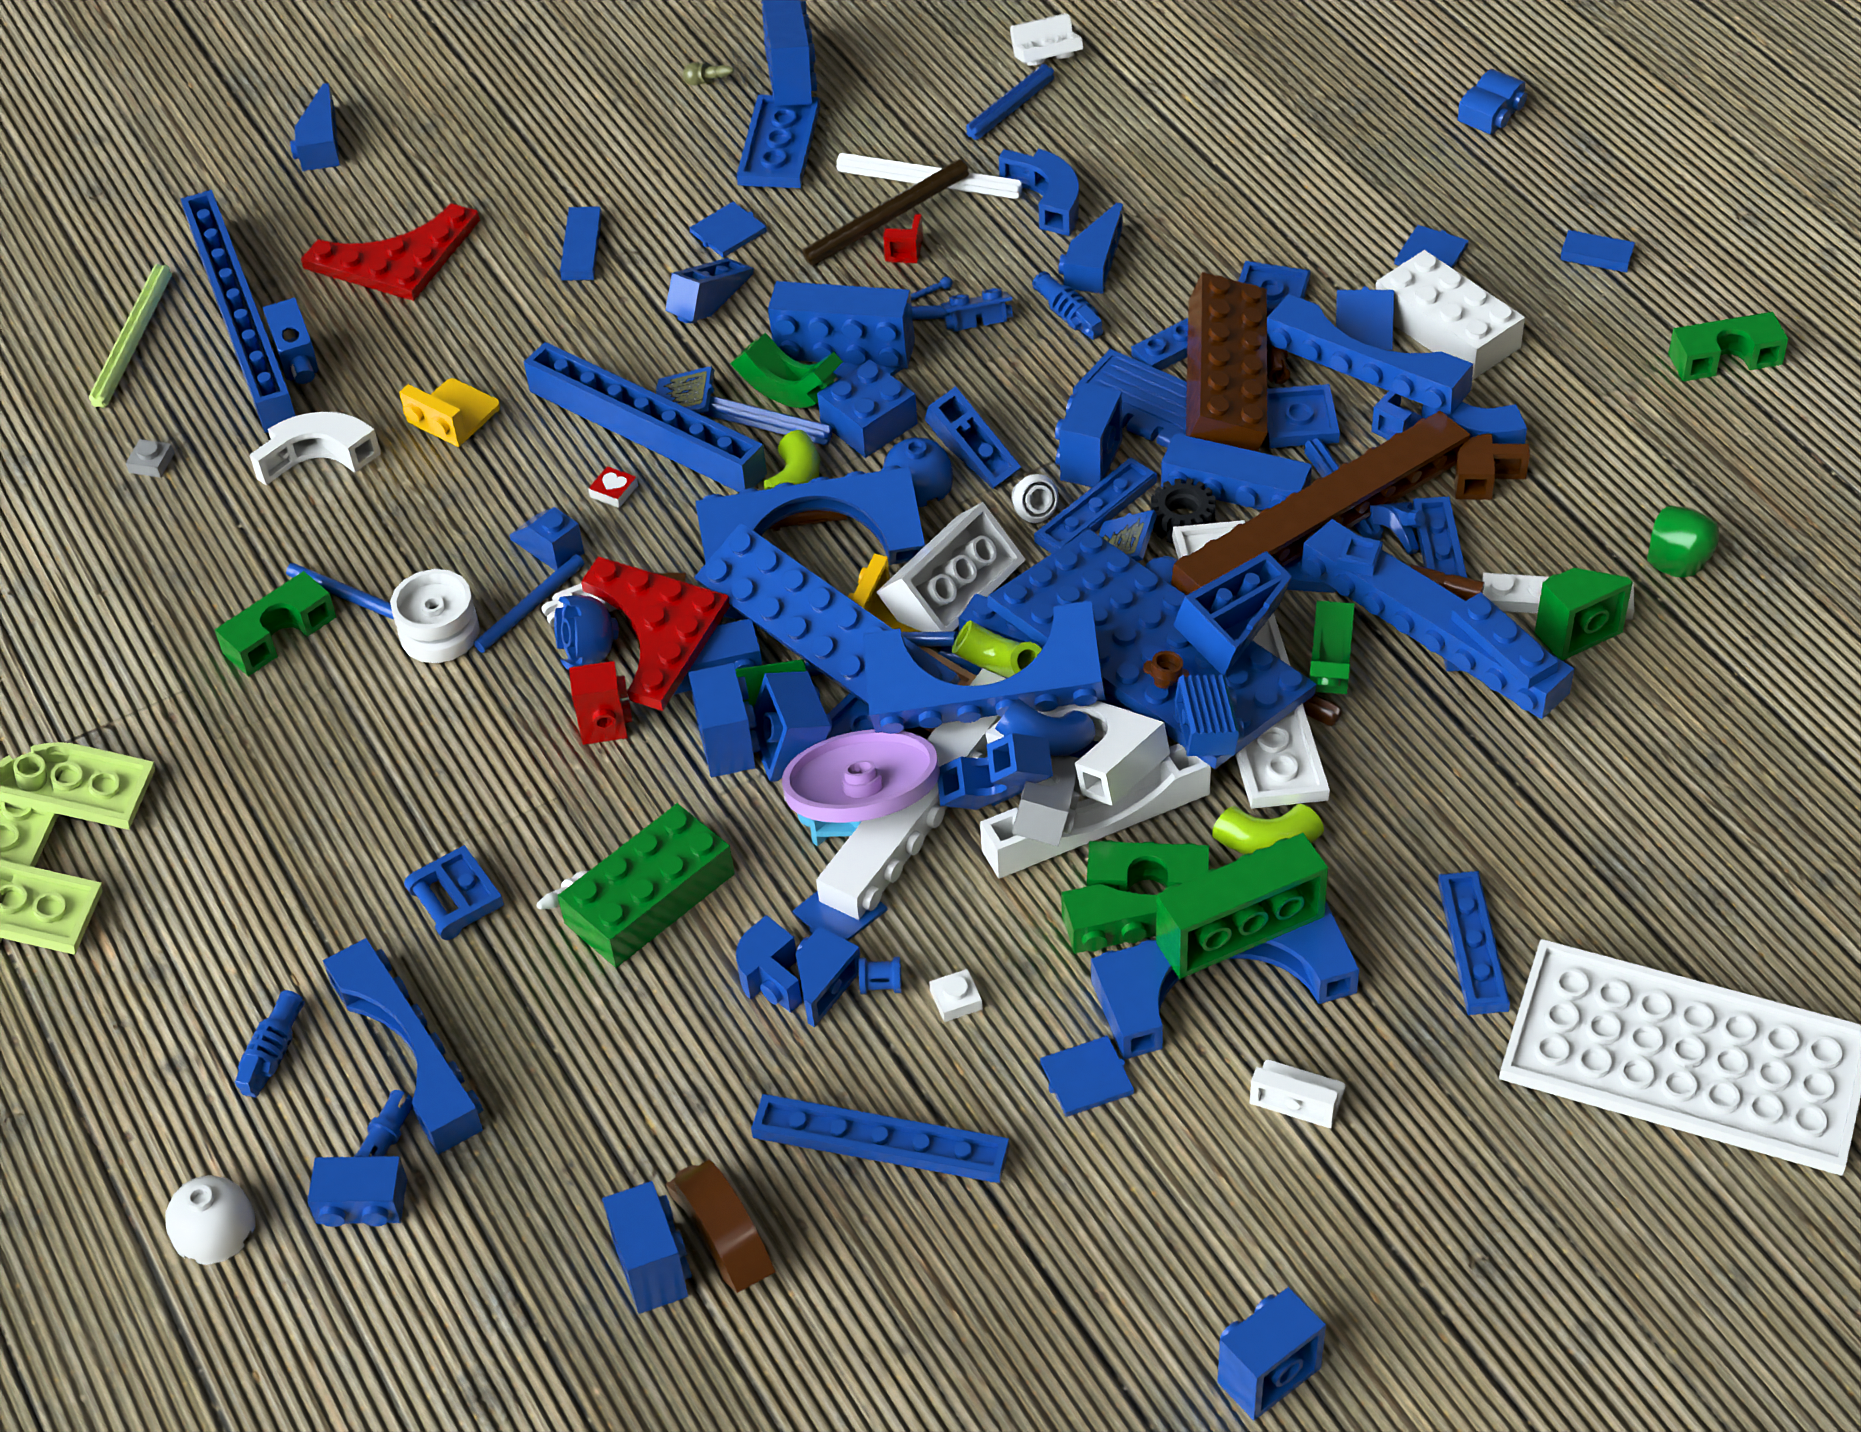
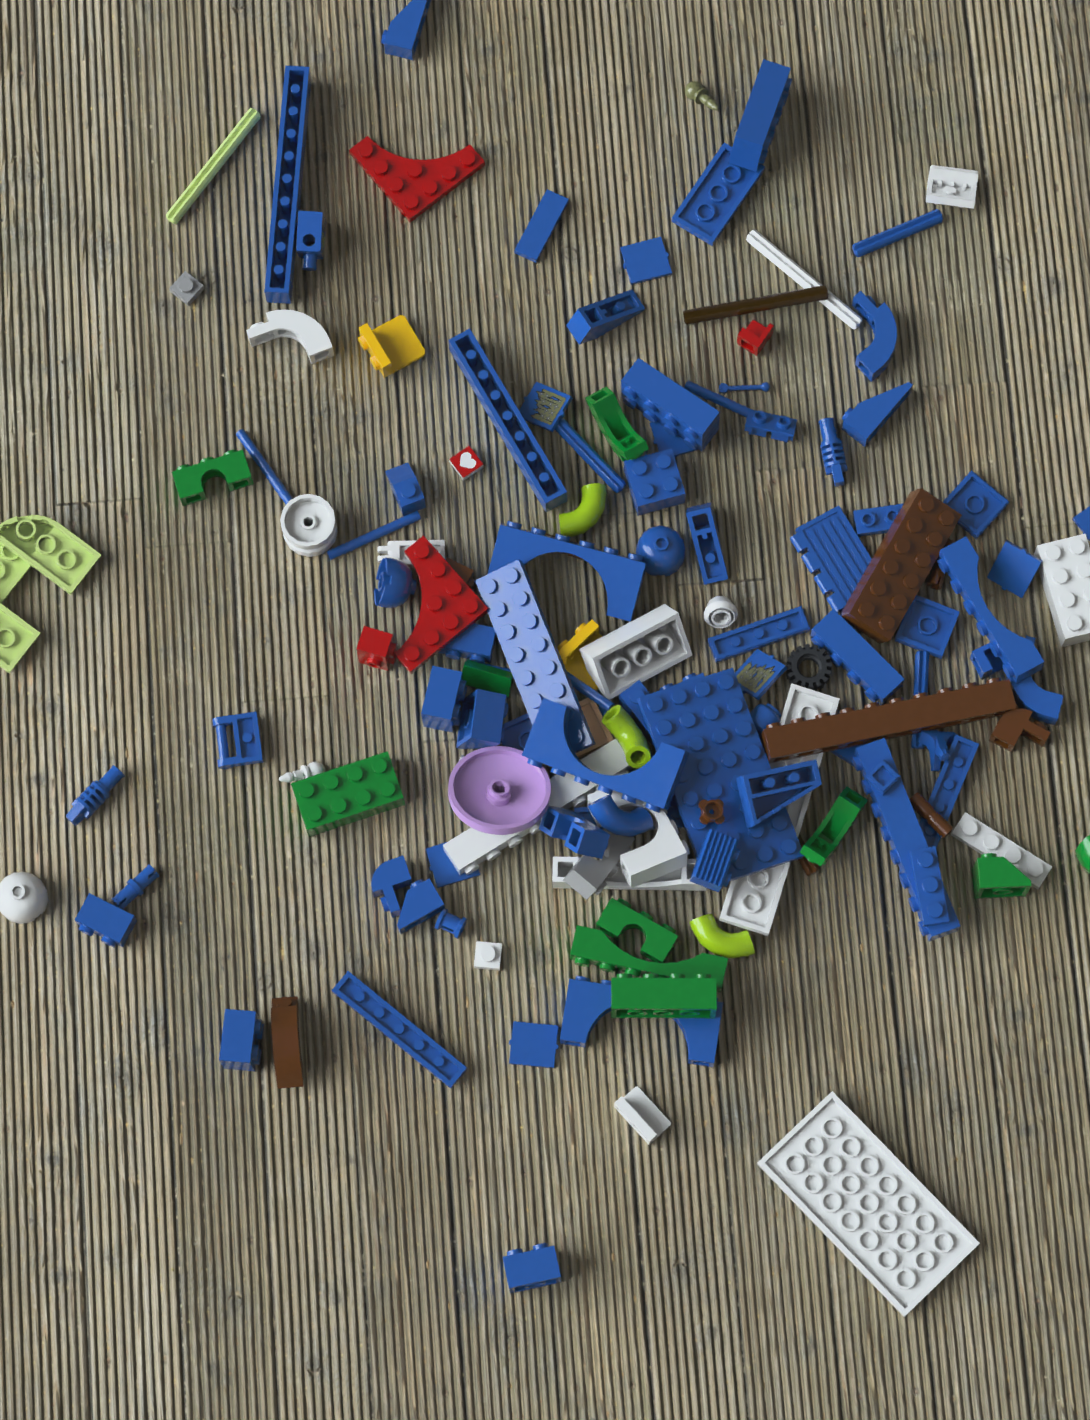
camera: 25 degrees right, 25 degrees up
(440, 1102) = (171, 887): blue arch -> none
(1089, 434) = (779, 583): blue brick -> none
(1473, 943) = (797, 1069): blue tile -> none

